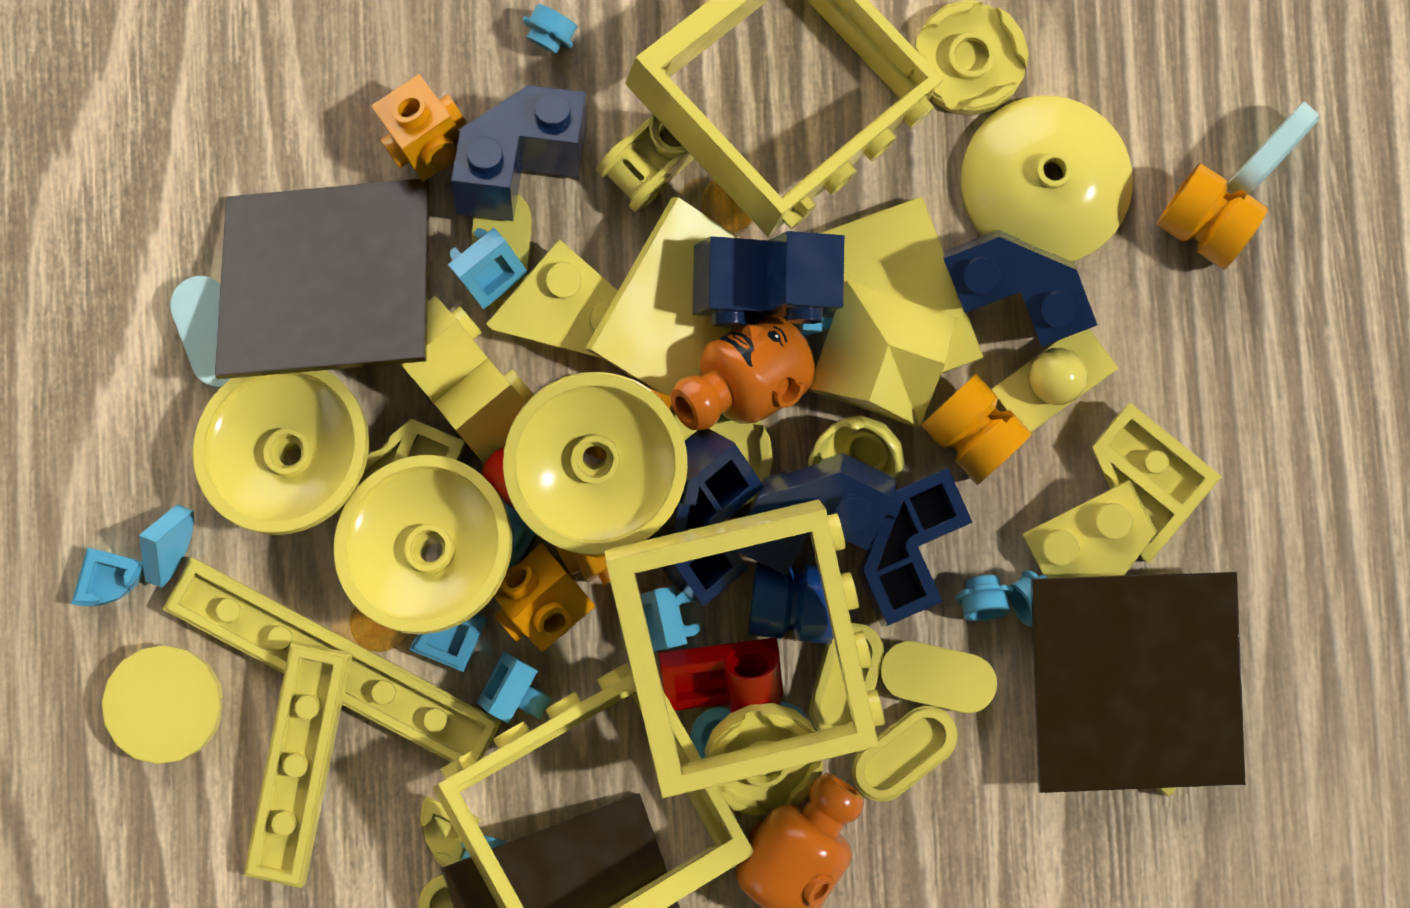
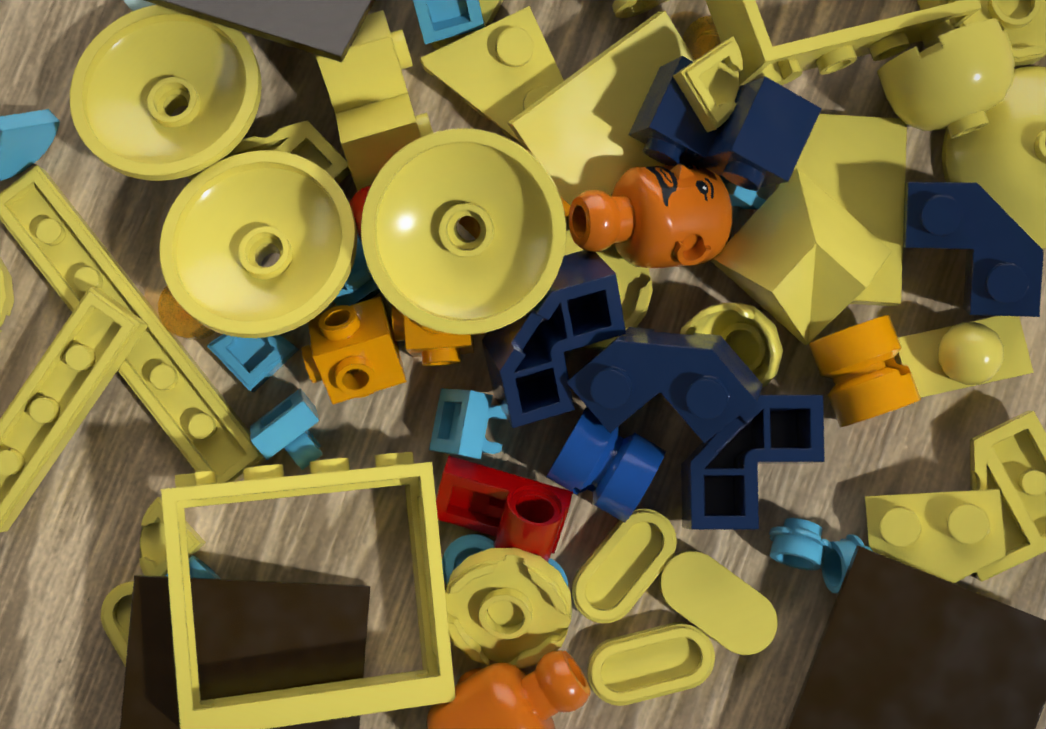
camera: 30 degrees right, 0 degrees up
(746, 248) = (713, 83): none -> light yellow tile
(839, 598) = (645, 537): light yellow window -> none
(944, 153) = (951, 80): none -> light yellow cylinder

